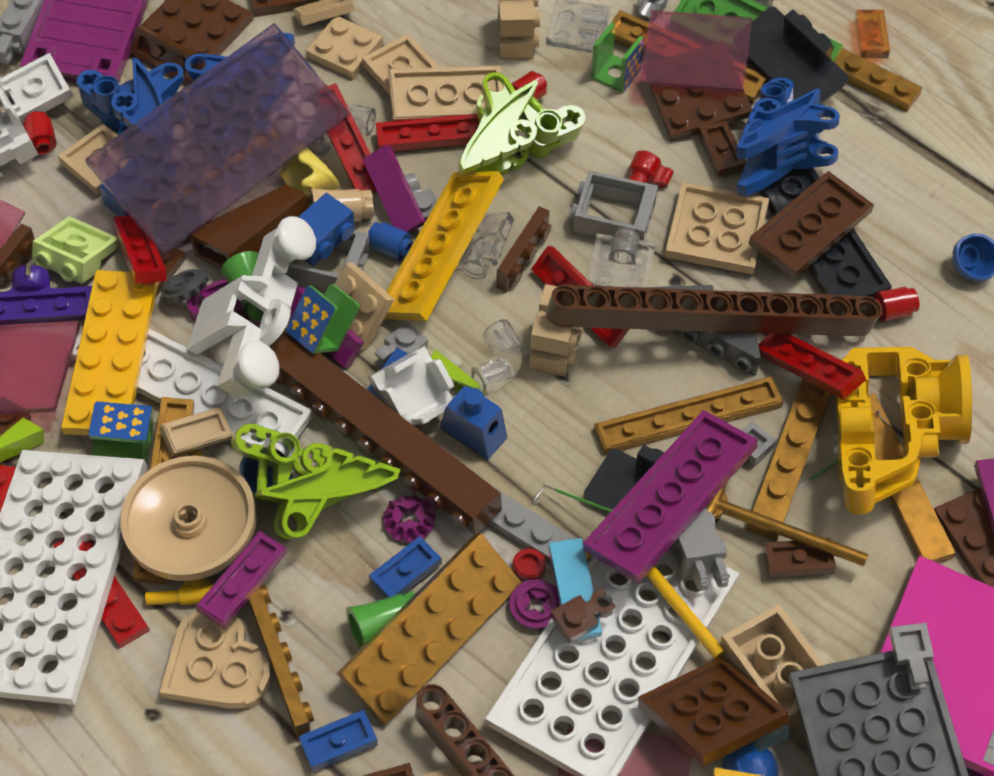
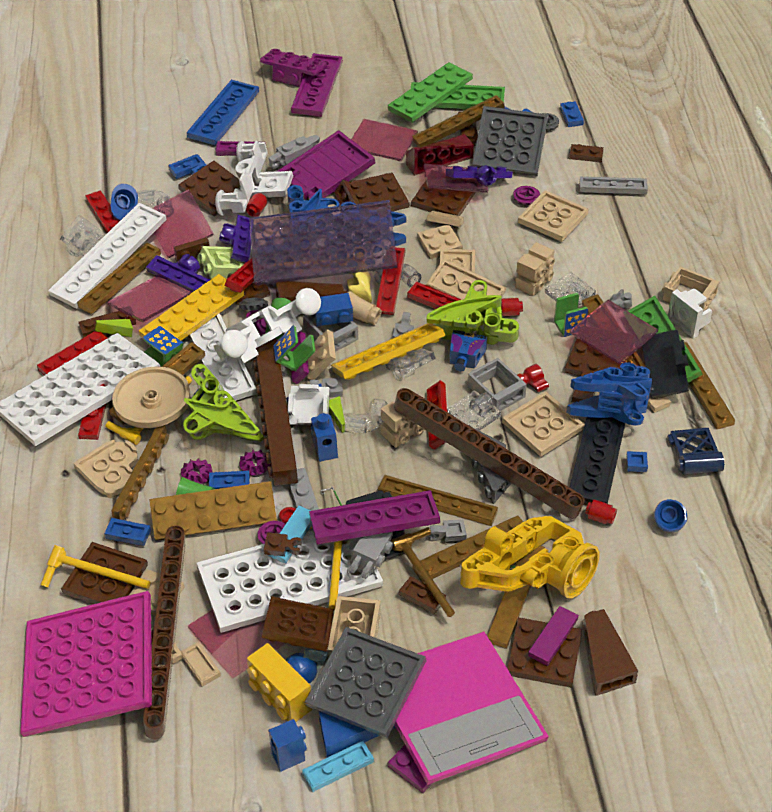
camera: 40 degrees right, 10 degrees down
(66, 194) = (238, 237): none -> dark purple plate
(196, 431) = (185, 362): tan tile -> none
(241, 579) = (148, 436): magenta tile -> none
(347, 596) = (203, 466): none -> magenta gear
(389, 240) = (368, 336): blue brick -> none
(394, 189) = (391, 315): magenta tile -> none
(523, 249) = (430, 376): reddish brown plate -> none
(529, 182) = (466, 349): none -> blue torso
(811, 224) = (590, 446): reddish brown plate -> none
(811, 364) = (517, 509): red plate -> none
(872, 33) = (734, 379): clear orange plate -> none
(879, 212) = (636, 461): none -> blue plate
(912, 647) = (409, 650): light grey plate -> none
(933, 164) = (699, 460): none -> dark blue piece

